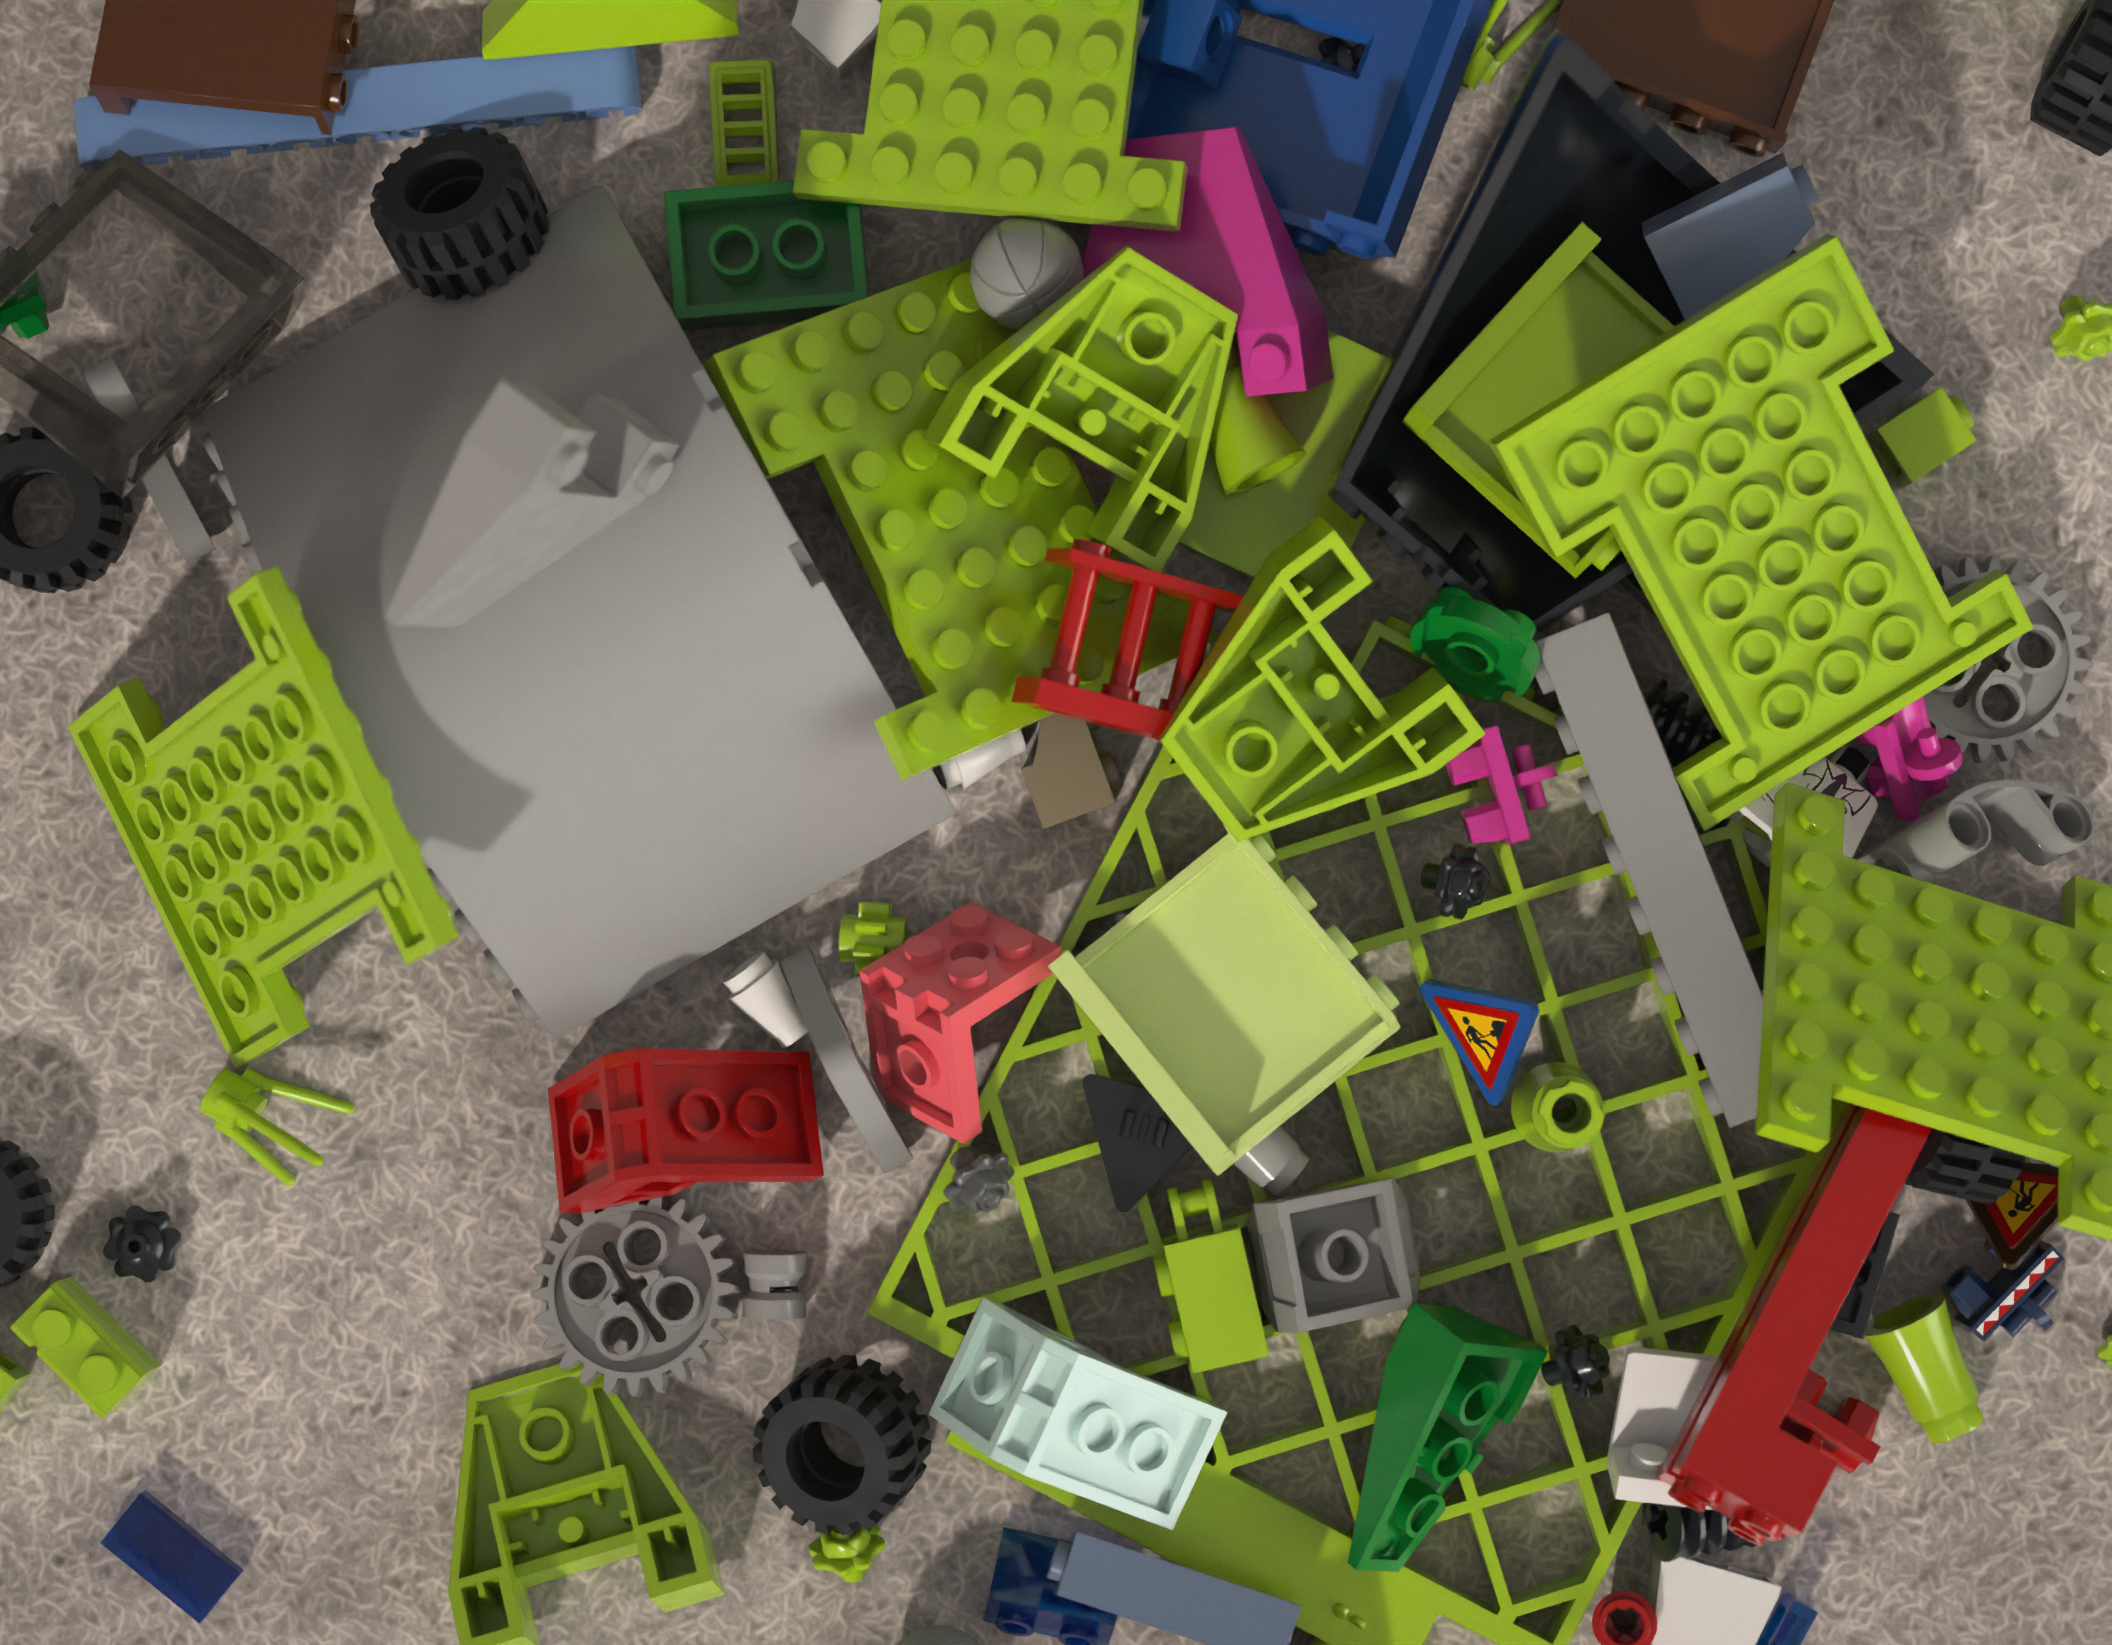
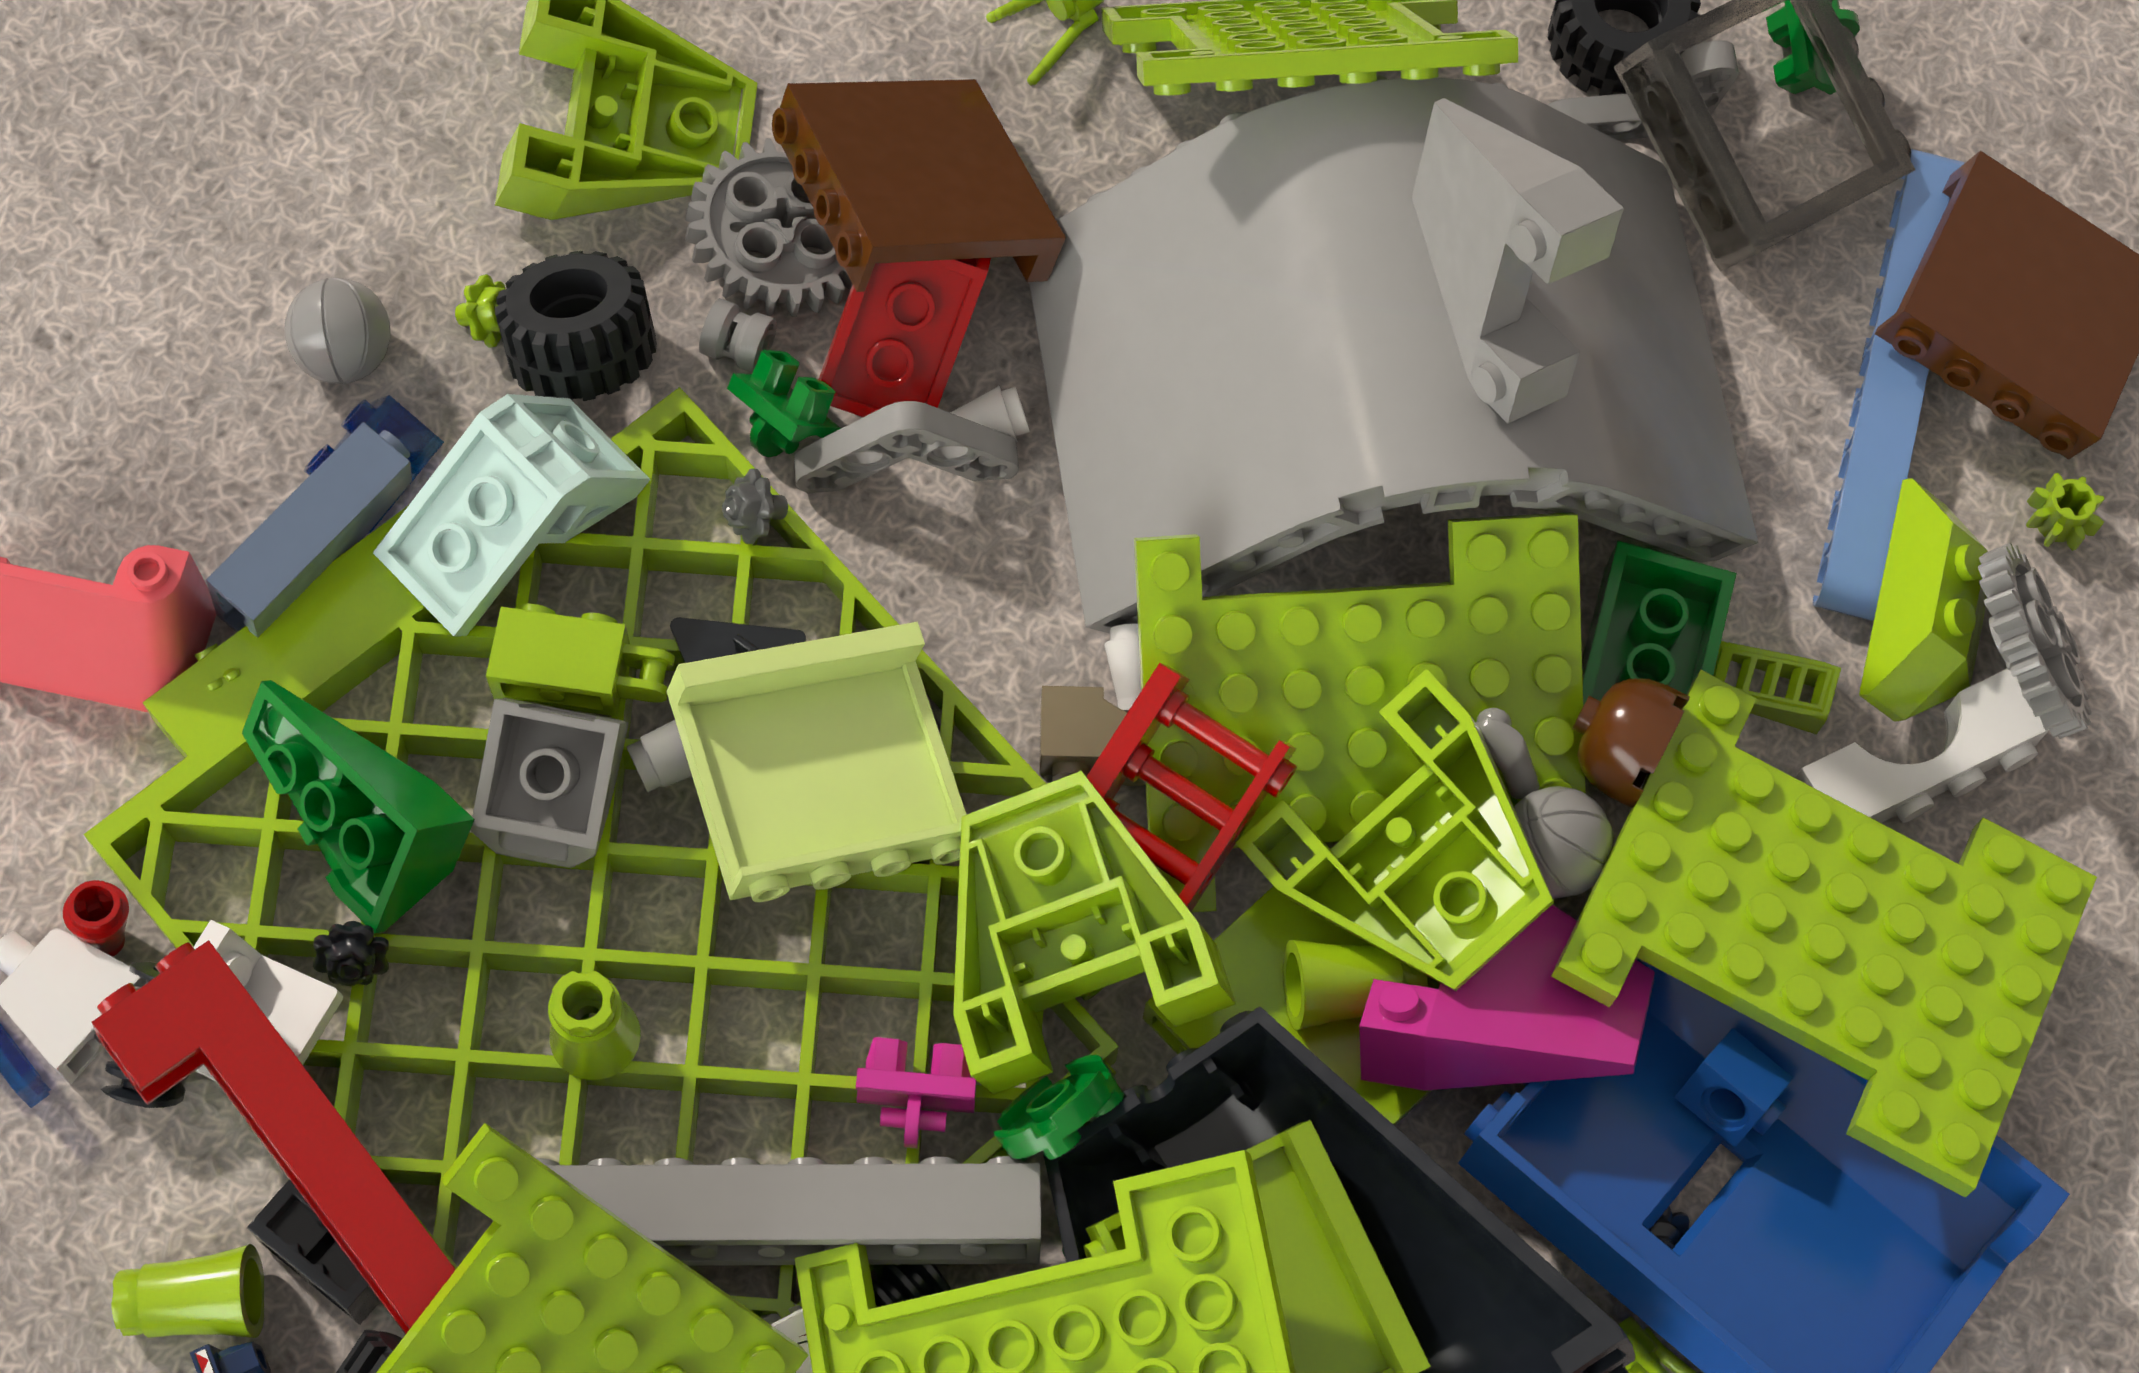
camera: 105 degrees right, 20 degrees down
(459, 213) = (1771, 408): black tyre -> none
(553, 1167) = (914, 175): none -> reddish brown panel
(844, 1201) = (781, 413): none -> green hips
(870, 934) = (1001, 519): lime gear -> none
(900, 237) = (1627, 735): none -> reddish brown cylinder
(929, 996) = (934, 530): coral bracket -> none
(959, 350) = (1508, 752): none -> light grey arm
(1457, 881) = (842, 1016): black plant -> none
(1485, 1031) = (693, 988): piece -> none
(1841, 1437) = (163, 1194): red hips -> none

